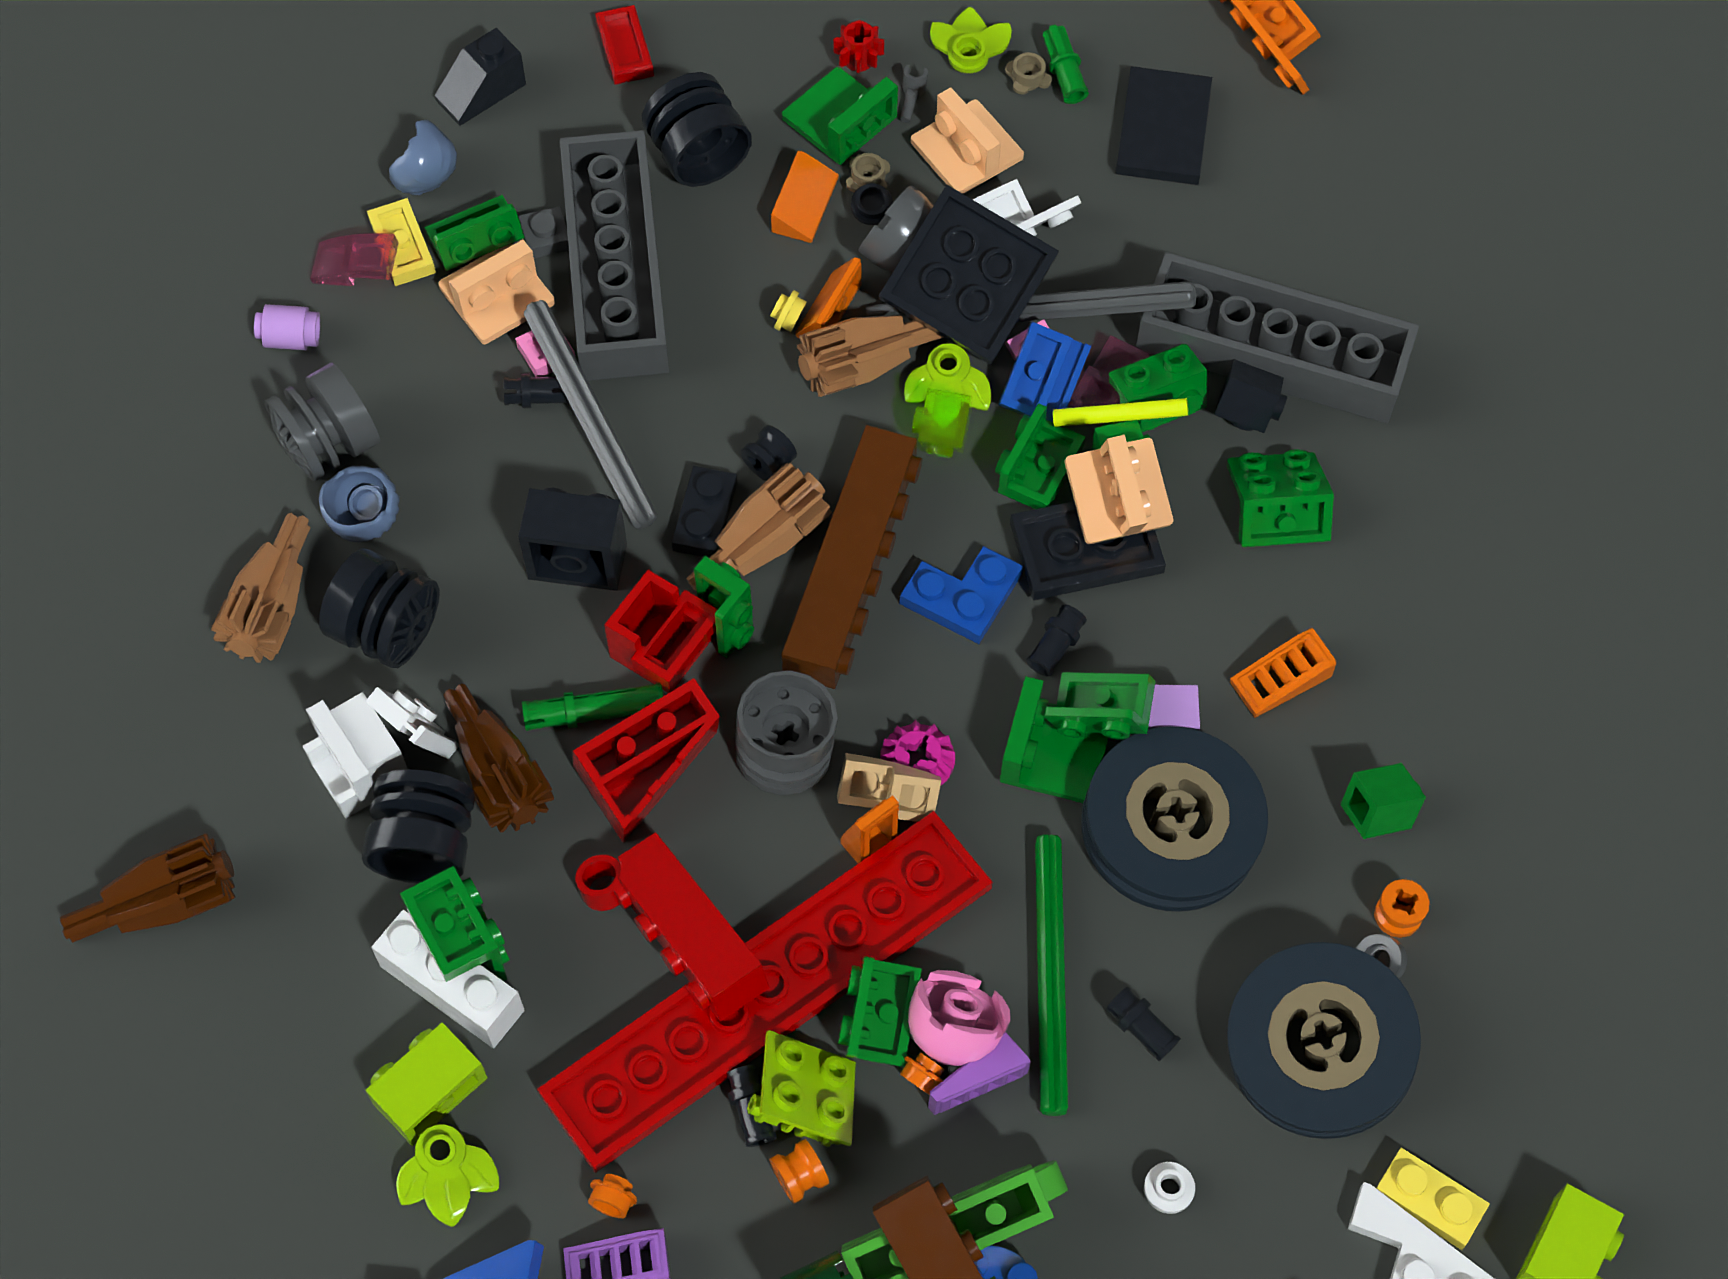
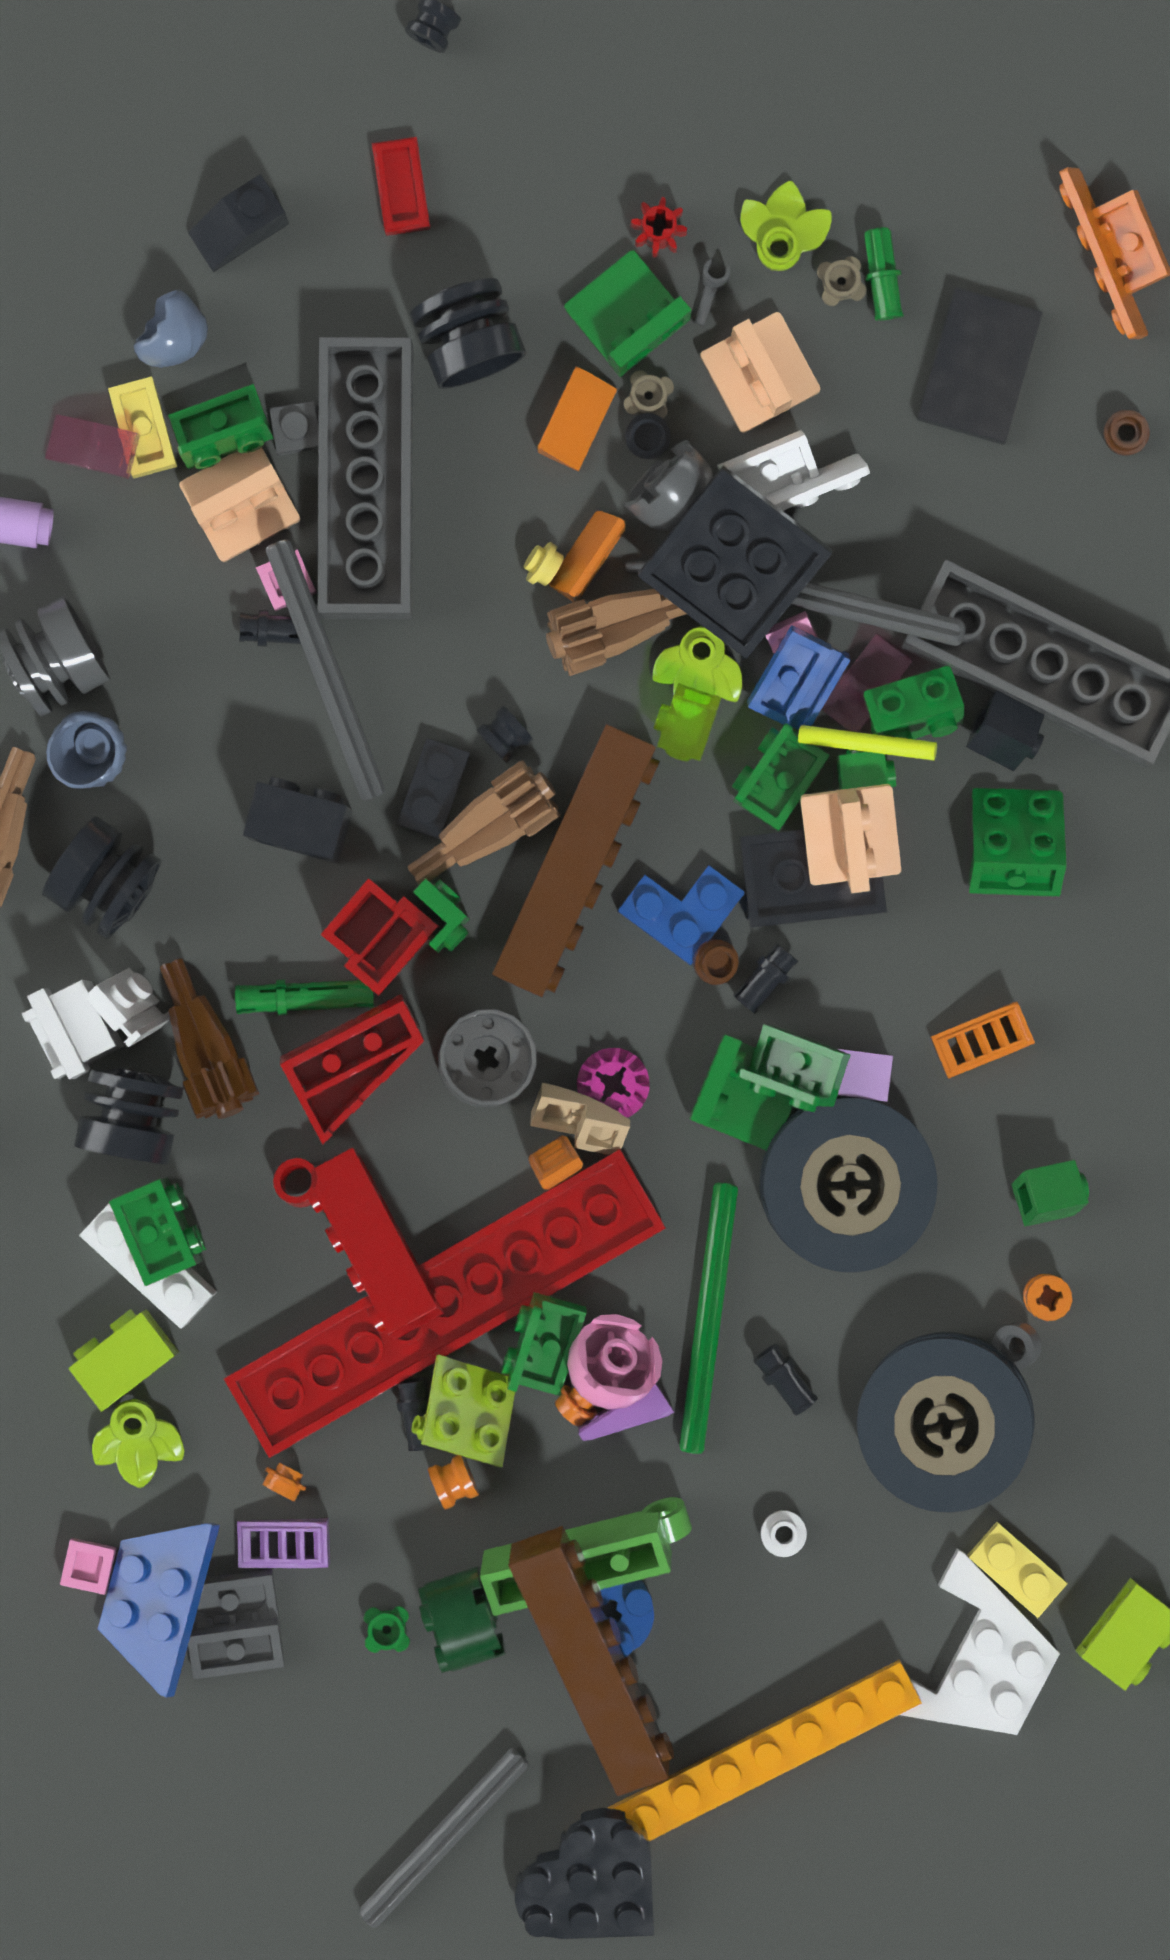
camera: 10 degrees right, 25 degrees up
(1004, 631) = (715, 961): none -> reddish brown plate
(1309, 151) = (1136, 423): none -> reddish brown plate

